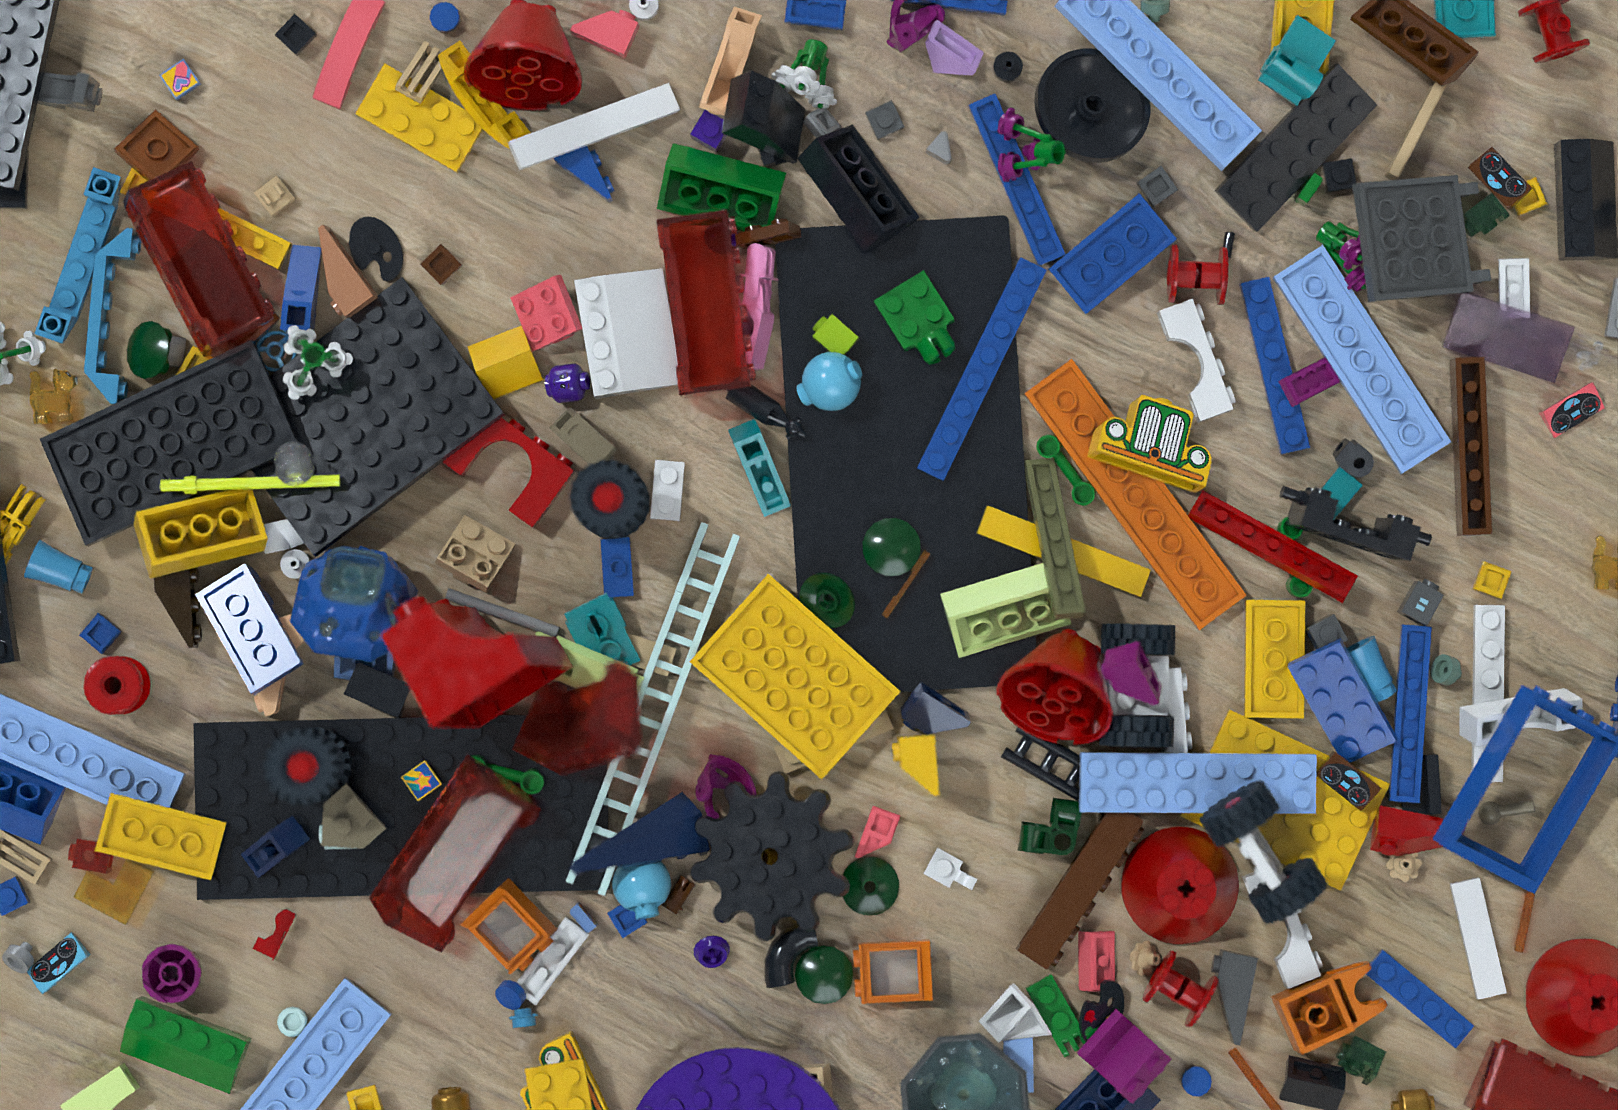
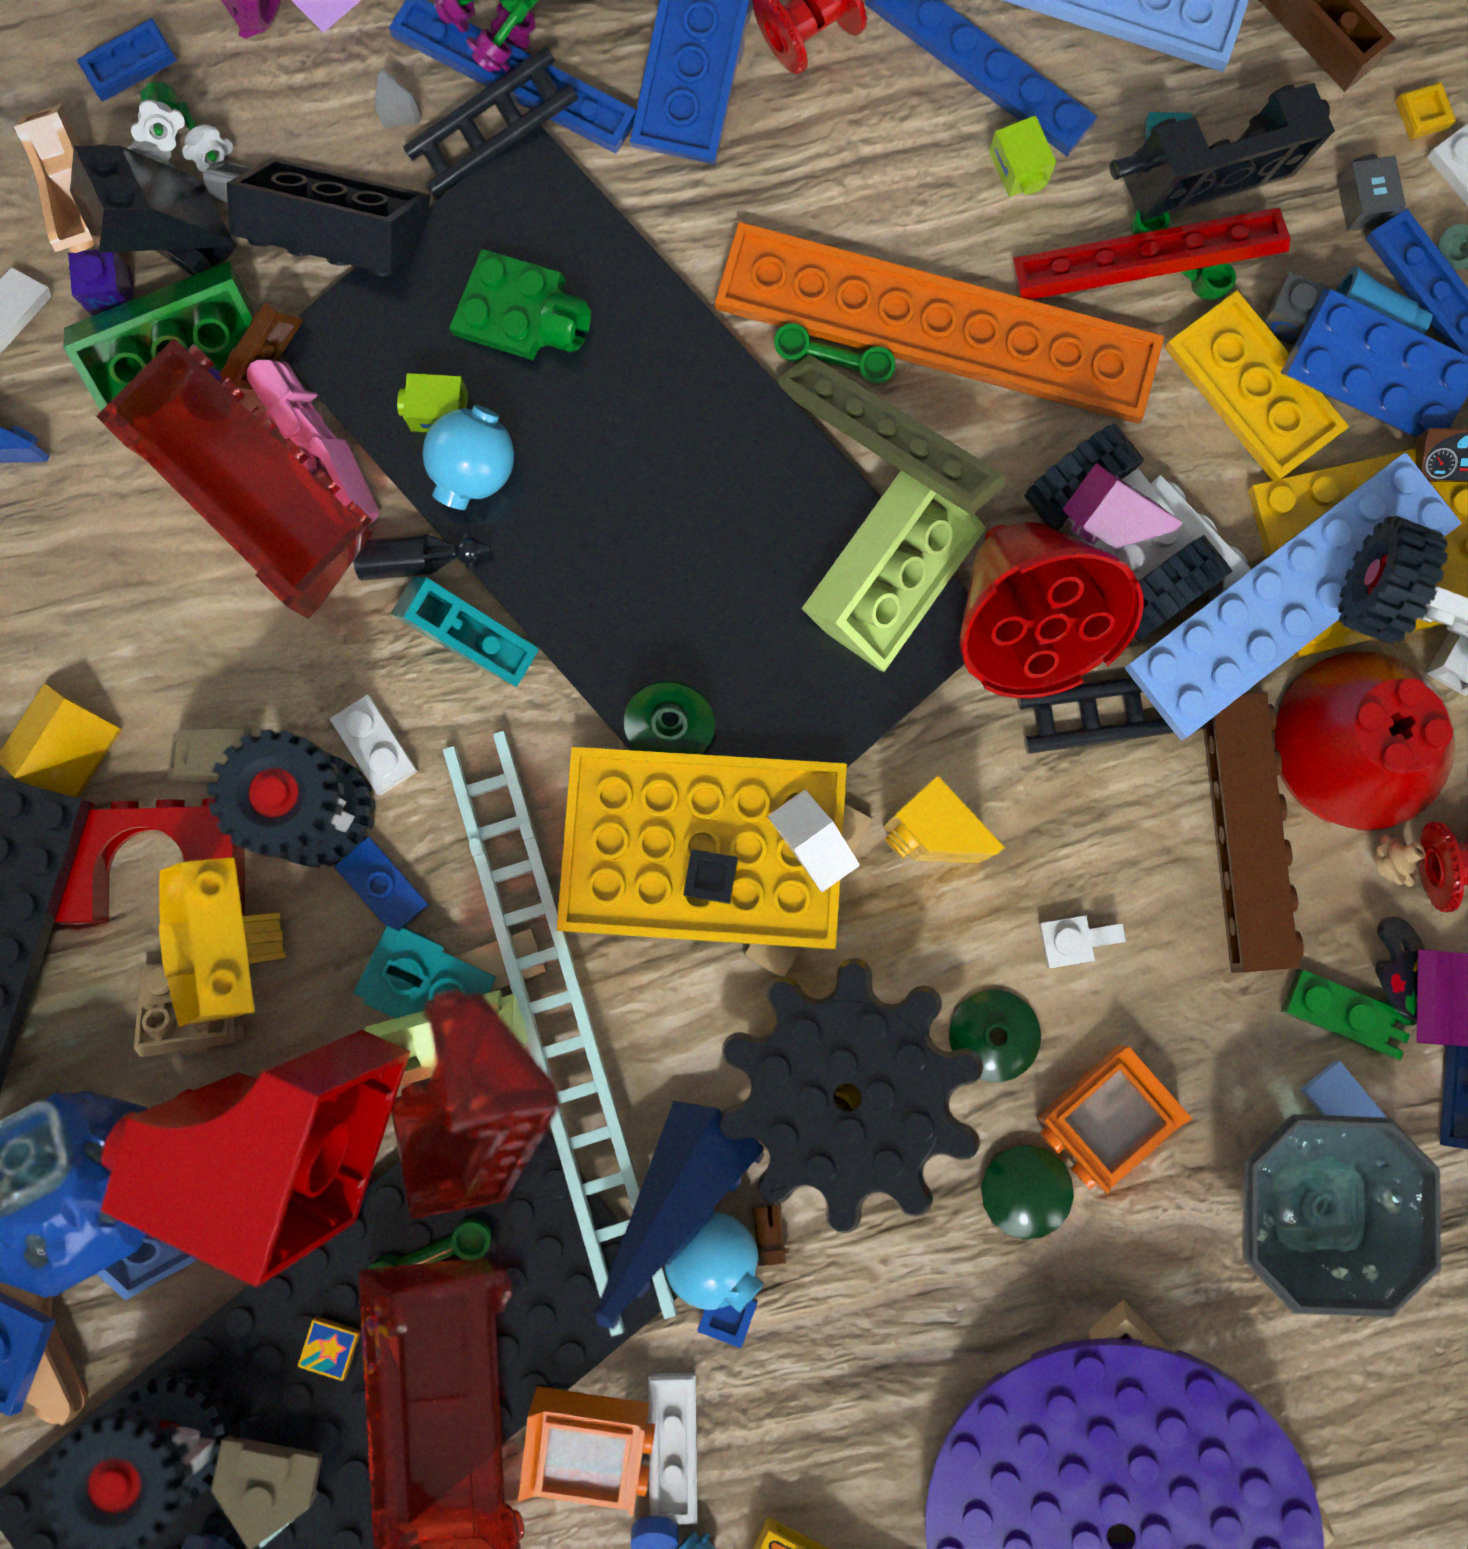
camera: 35 degrees left, 5 degrees down
(378, 690) = (179, 1279): black panel -> none
(502, 613) = (277, 1053): light grey bar -> none
(525, 541) = (210, 942): none -> yellow piece
(546, 313) = (59, 642): coral plate -> none
(567, 383) = (148, 708): dark purple head -> none
(583, 917) = (671, 1361): medium blue tile -> none
(627, 332) = (177, 593): white slope -> none
(711, 779) = (697, 1056): magenta helmet -> none
(711, 951) = (866, 1274): dark purple hat -> none
(783, 953) = (958, 1208): black cylinder -> none
(787, 695) = (710, 876): none -> black plate
(852, 717) = (814, 840): none -> white slope
(878, 831) = (951, 960): coral tile -> none
(884, 120) = (305, 123): dark grey plate -> none
(891, 547) = (698, 601): dark green dish -> none
(915, 570) = (752, 659): clear orange piece -> none
(932, 712) = (903, 761): dark blue slope -> none
(981, 369) = (642, 315): blue plate -> none
(995, 214) = (517, 128): none -> black bar
(1014, 1017) = (1304, 1059): white slope -> none
(1040, 837) = (1163, 766): dark green piece -> none
(1089, 560) = (855, 466): yellow tile -> none
(1095, 959) = (1339, 910): coral slope -> none
(1153, 444) = (915, 241): brick -> none
(1184, 325) = (843, 88): white arch -> none
(1251, 440) = (1022, 157): none -> lime brick
(1309, 381) = (1035, 41): magenta plate -> none
(1353, 458) = (1157, 86): black piece -> none

